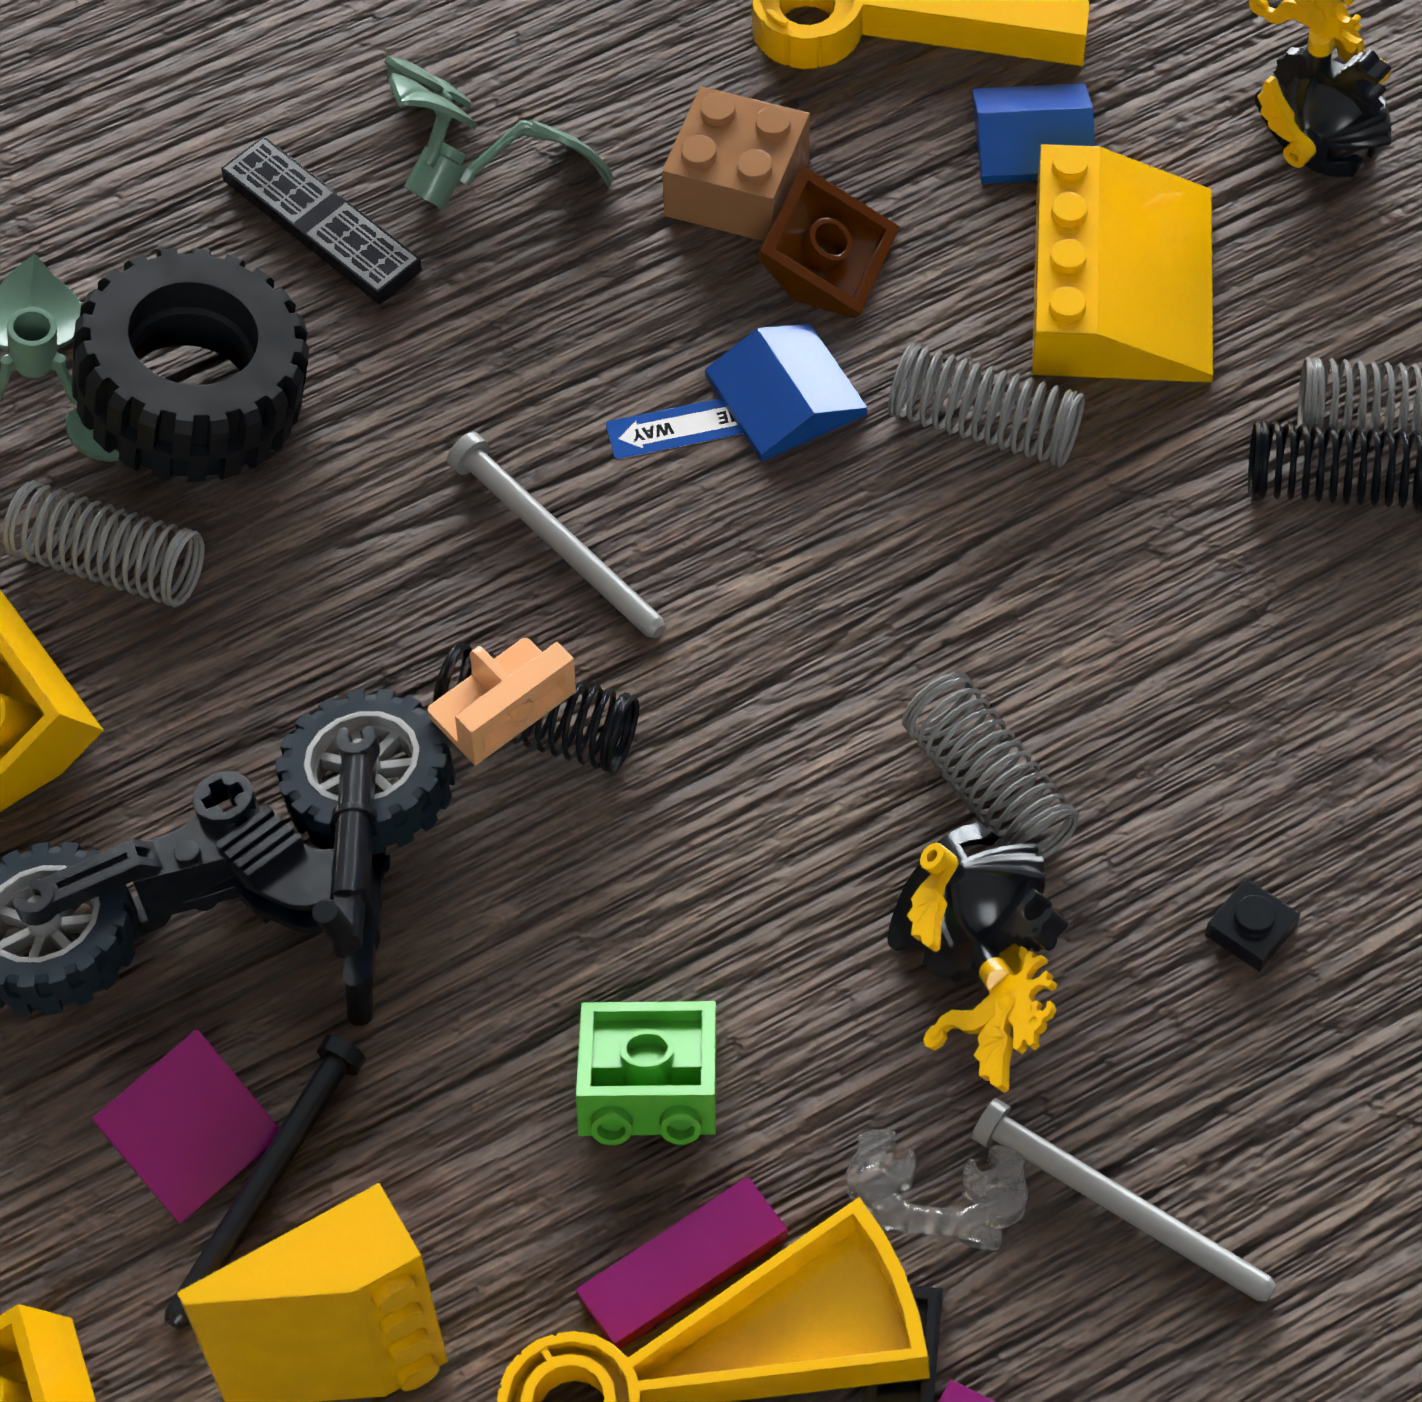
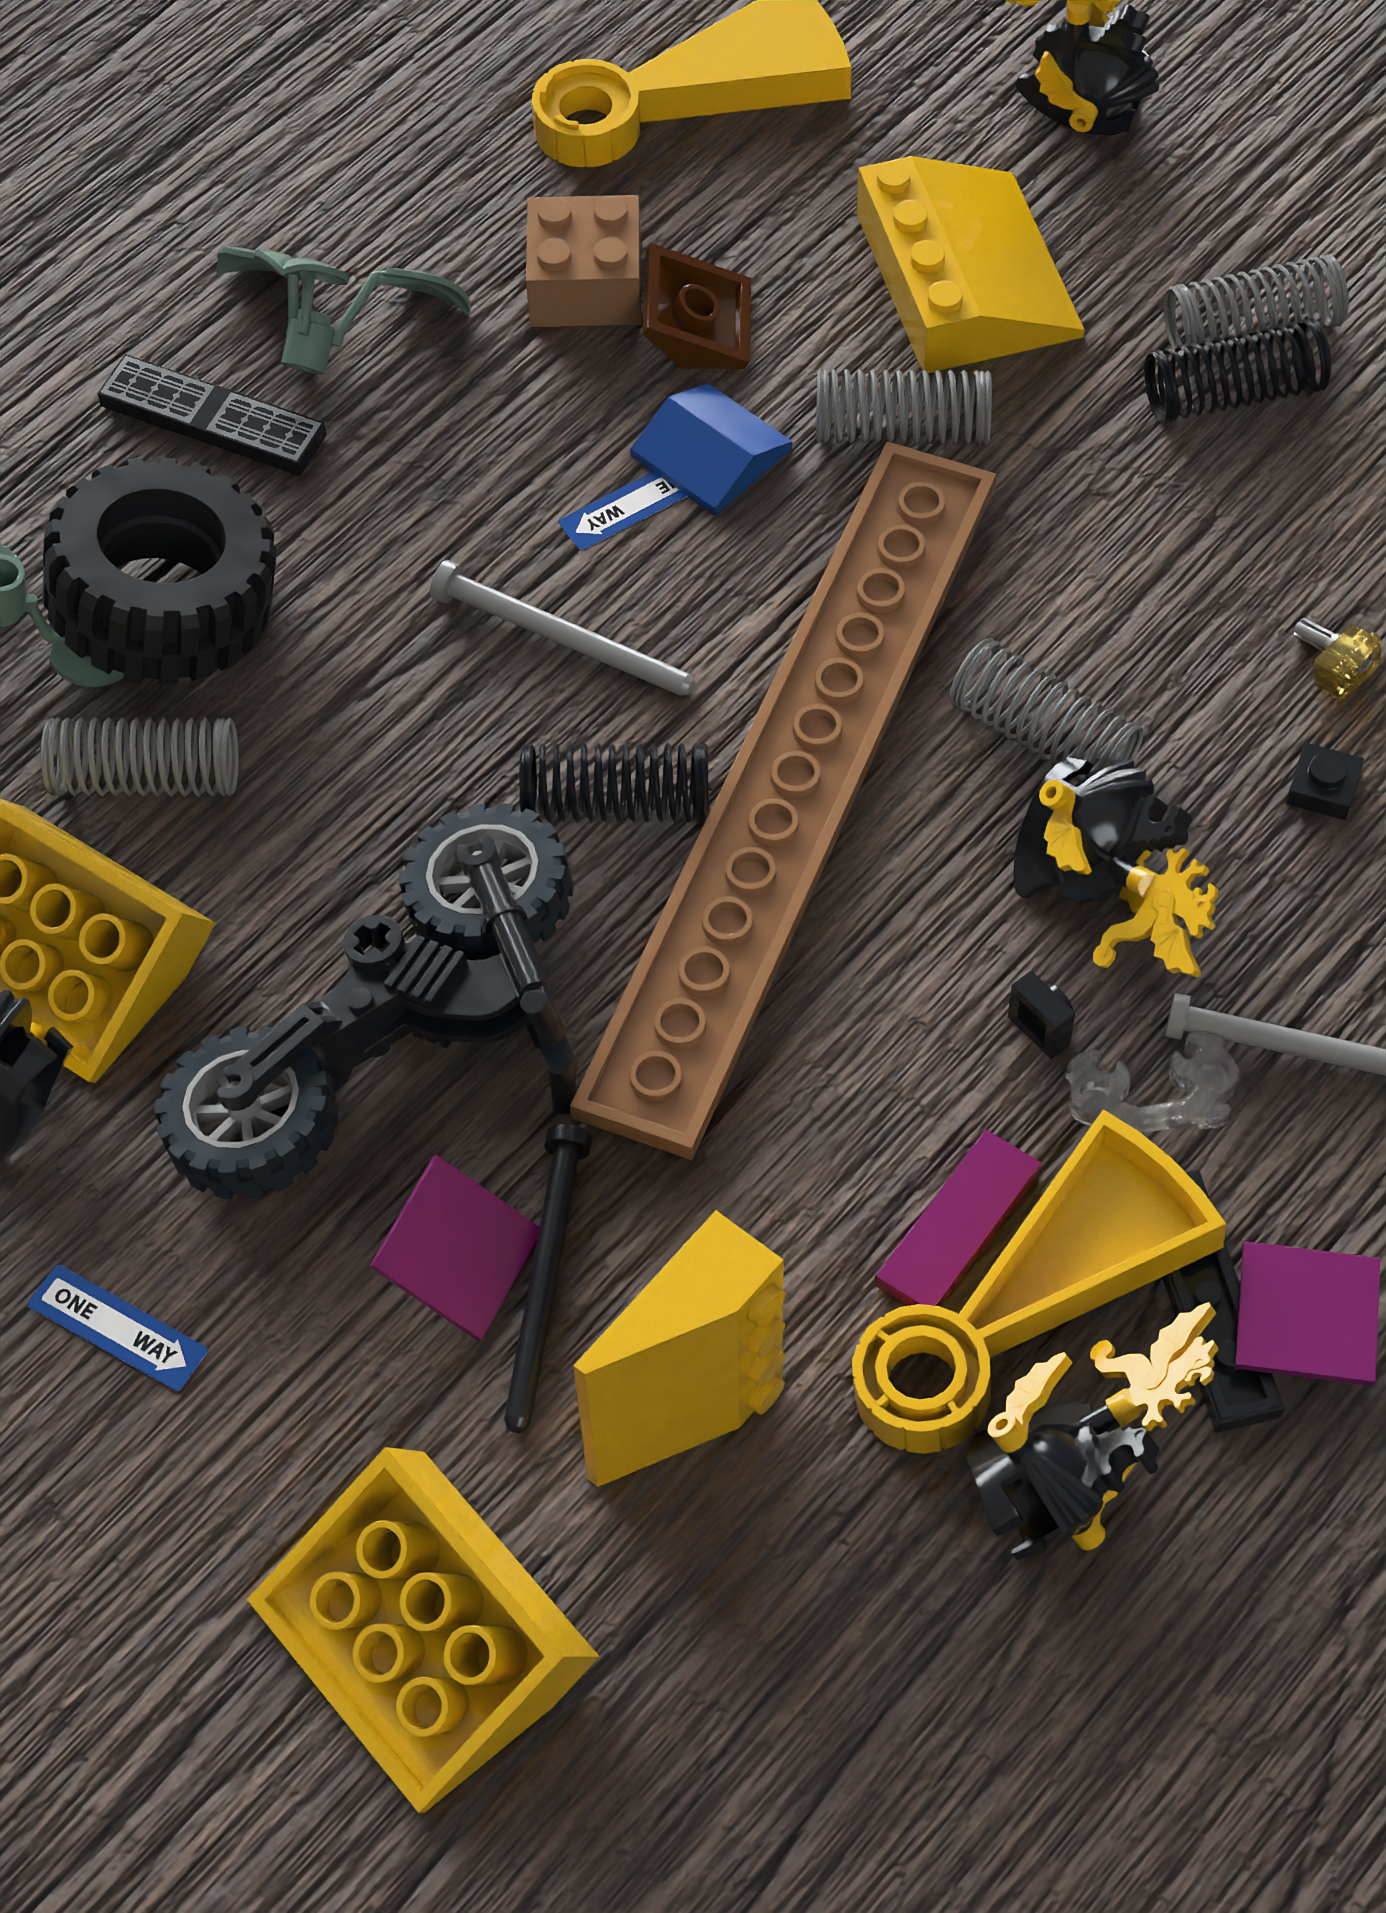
camera: 20 degrees left, 0 degrees up
(503, 696) = (594, 774): light nougat panel -> none
(647, 1070) = (858, 1066): bright green plate -> none
(698, 775) = (783, 805): none -> medium nougat plate
(855, 1076) = (1042, 1013): none -> black plate
(1019, 119) = (823, 163): blue slope -> none
(1329, 802) = (1345, 657): none -> clear yellow piece

